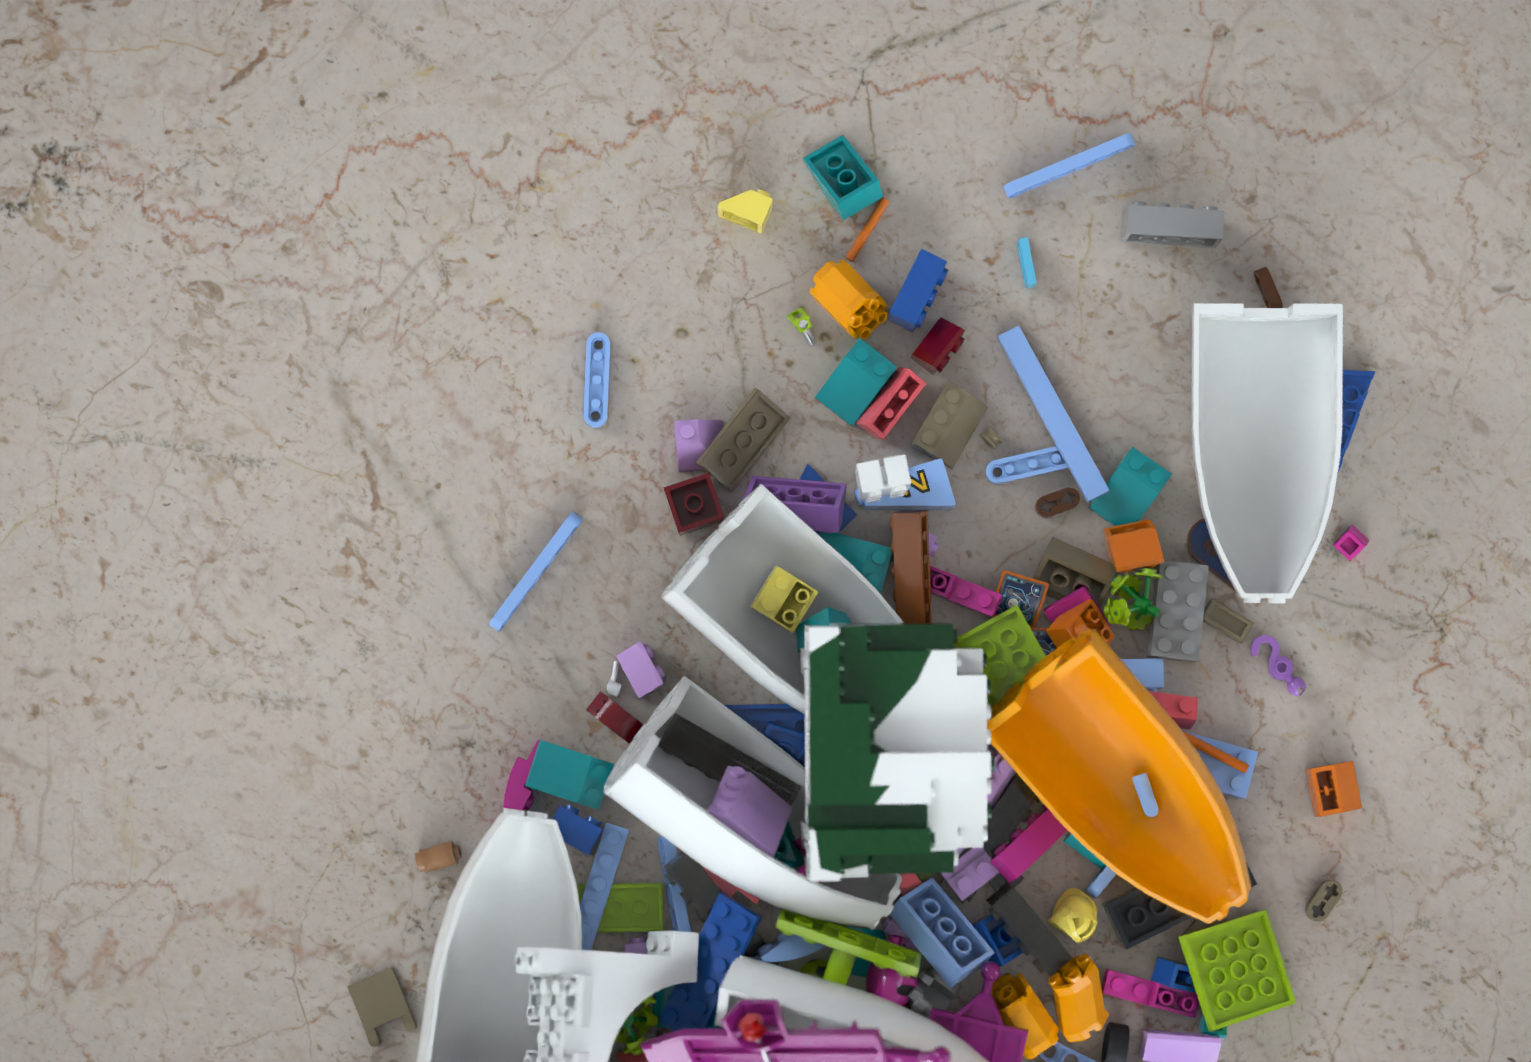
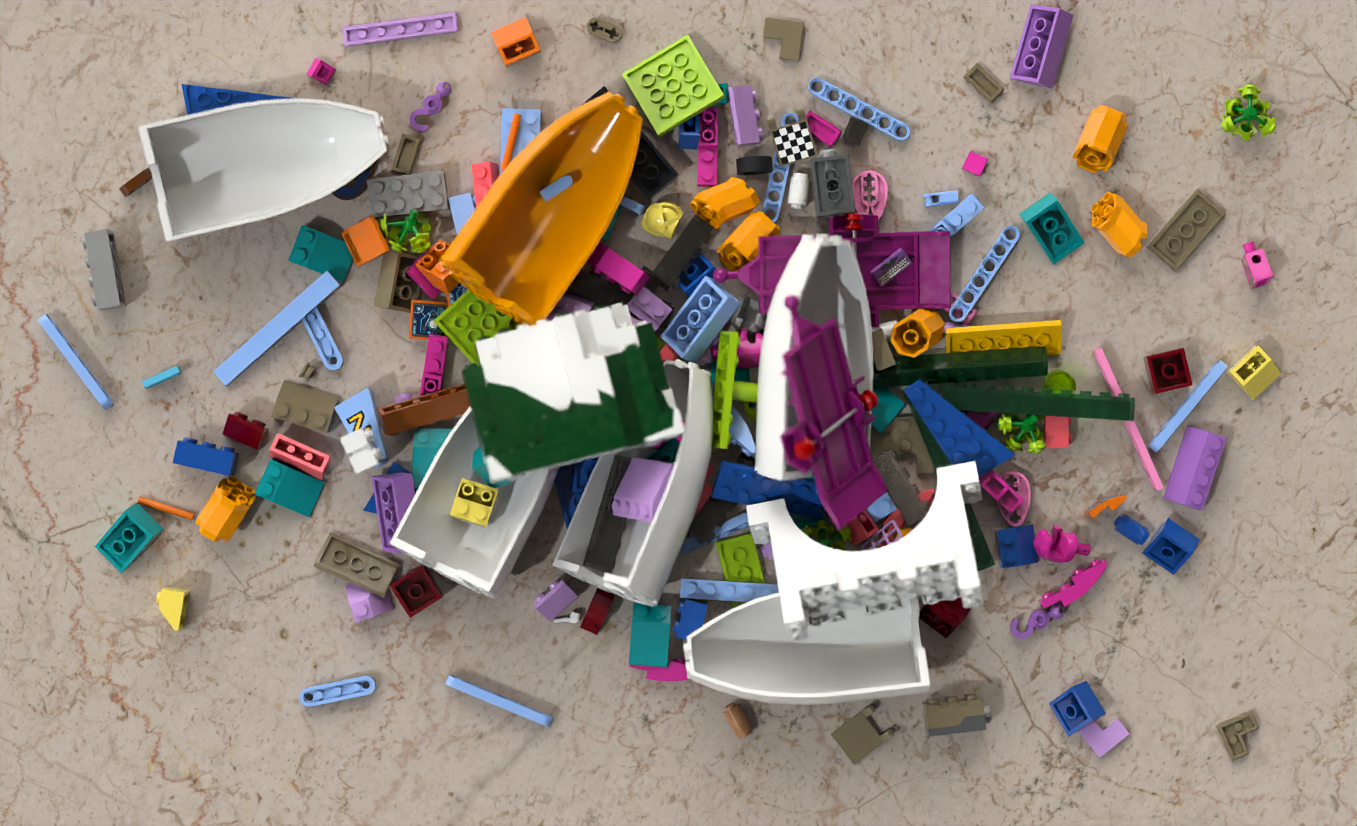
camera: 100 degrees left, 5 degrees up
(800, 320) = (251, 543): lime piece -> none
(1055, 497) = (349, 305): reddish brown beam -> none
(1380, 651) = (400, 29): none -> lavender tile

